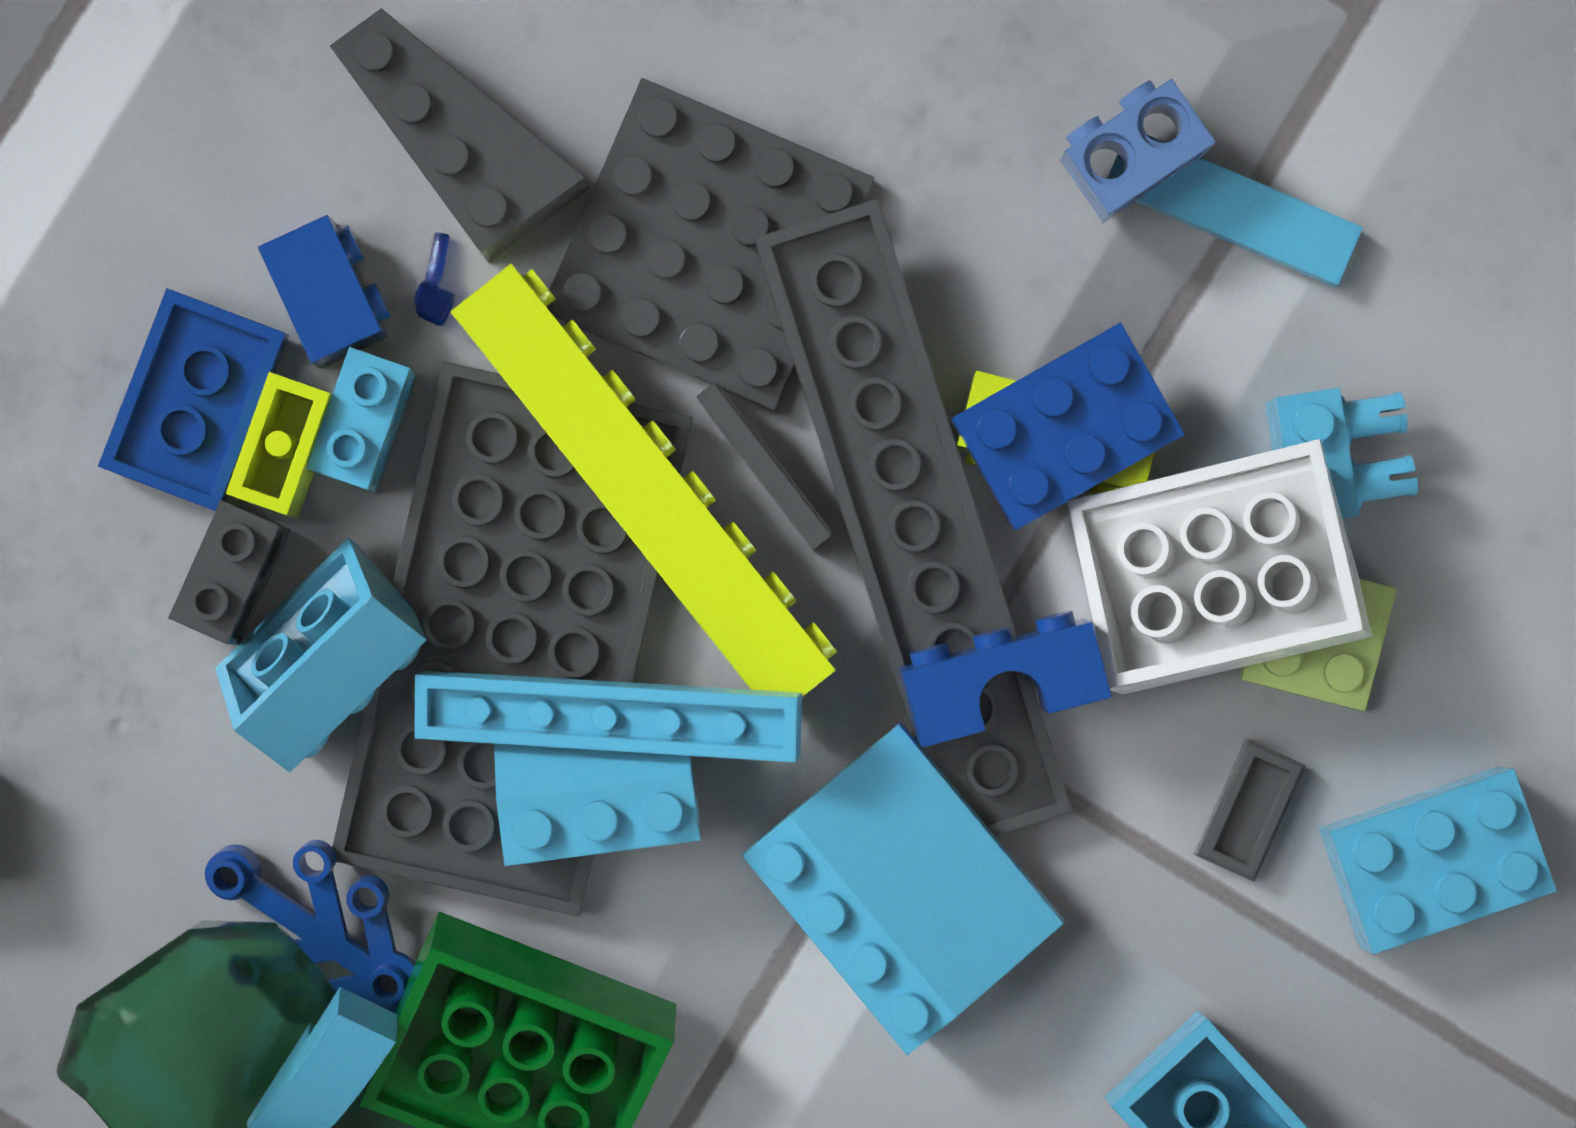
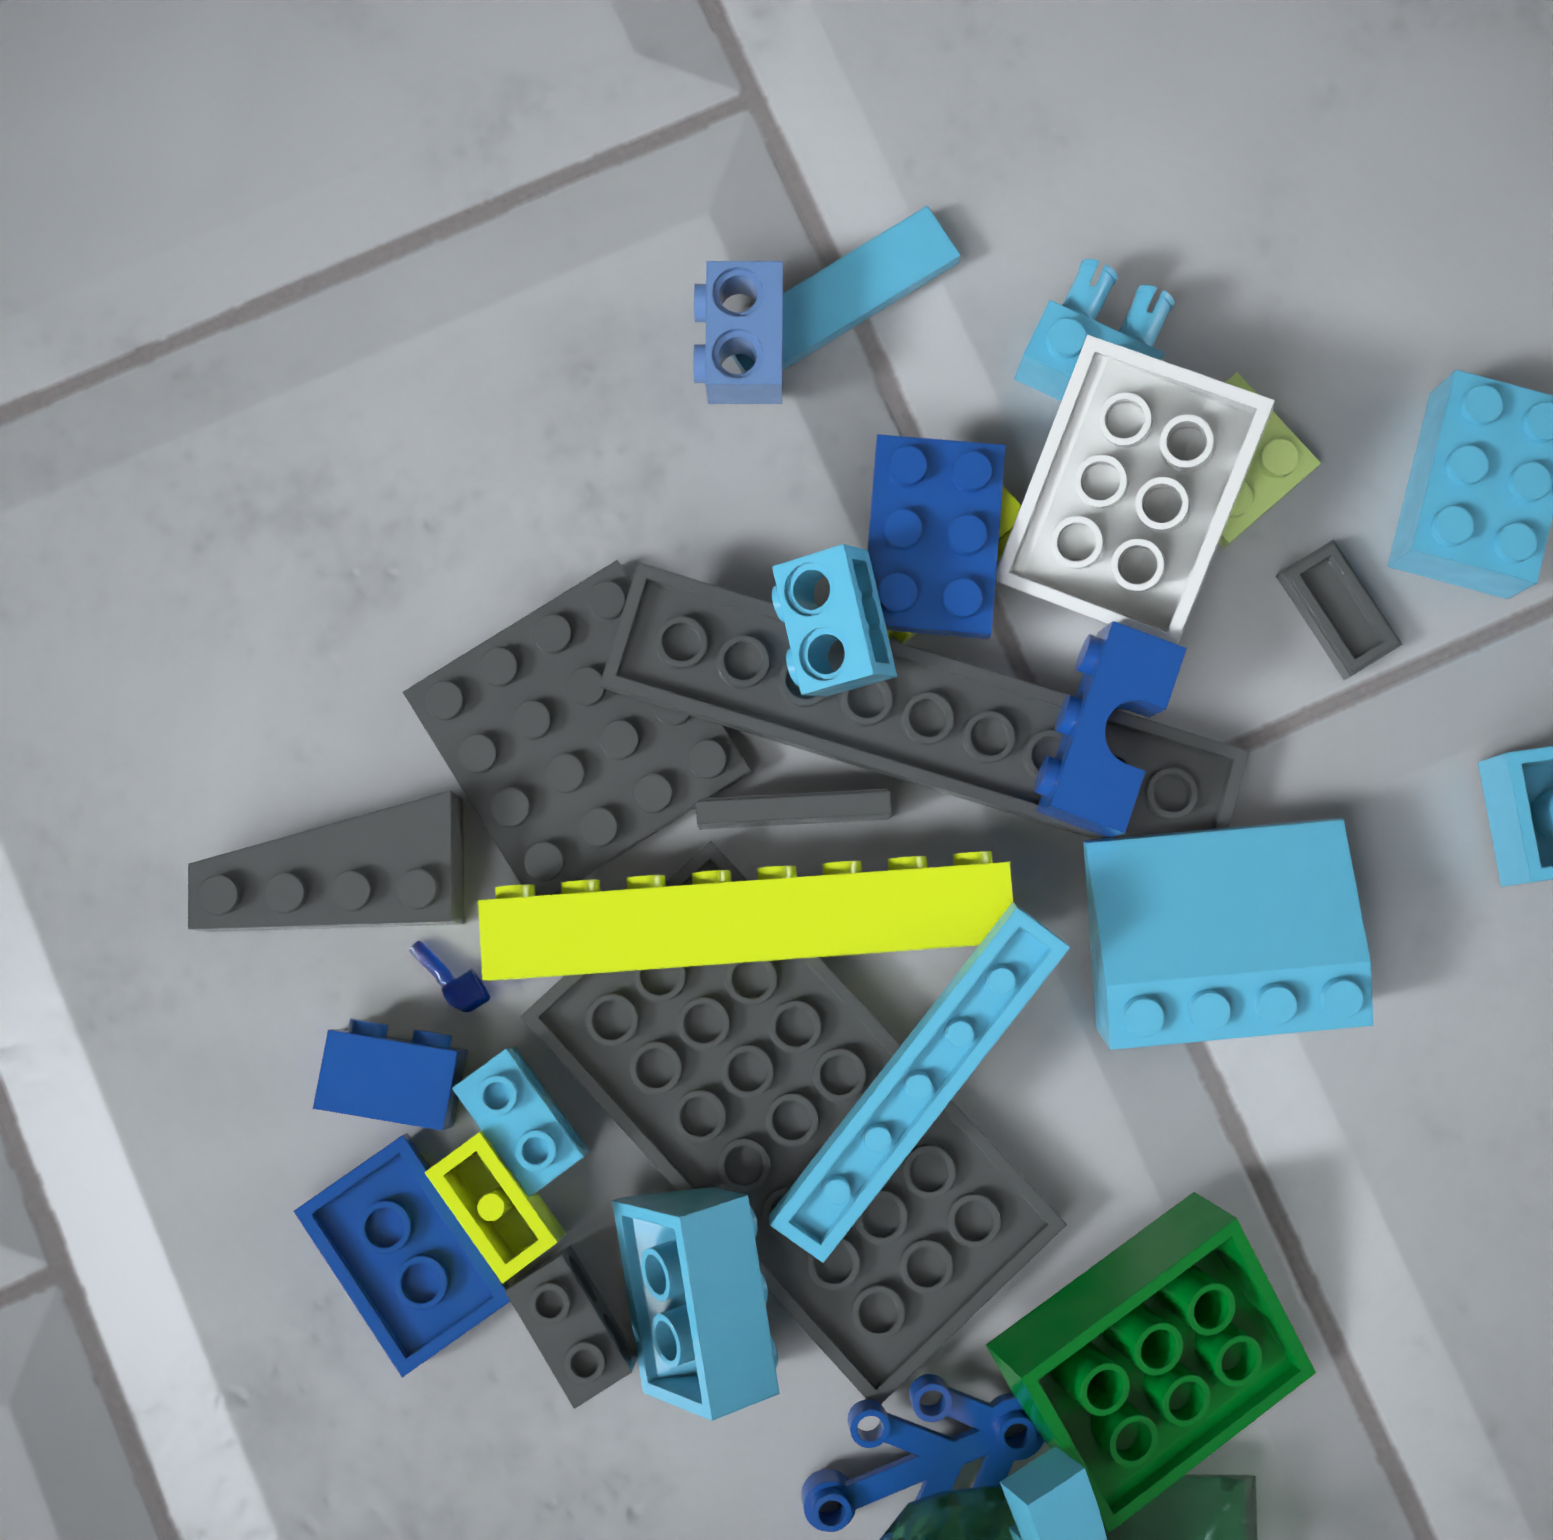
camera: 55 degrees left, 5 degrees down
(591, 801) = (982, 1149): medium azure slope -> none
(946, 403) = (849, 615): none -> medium azure brick

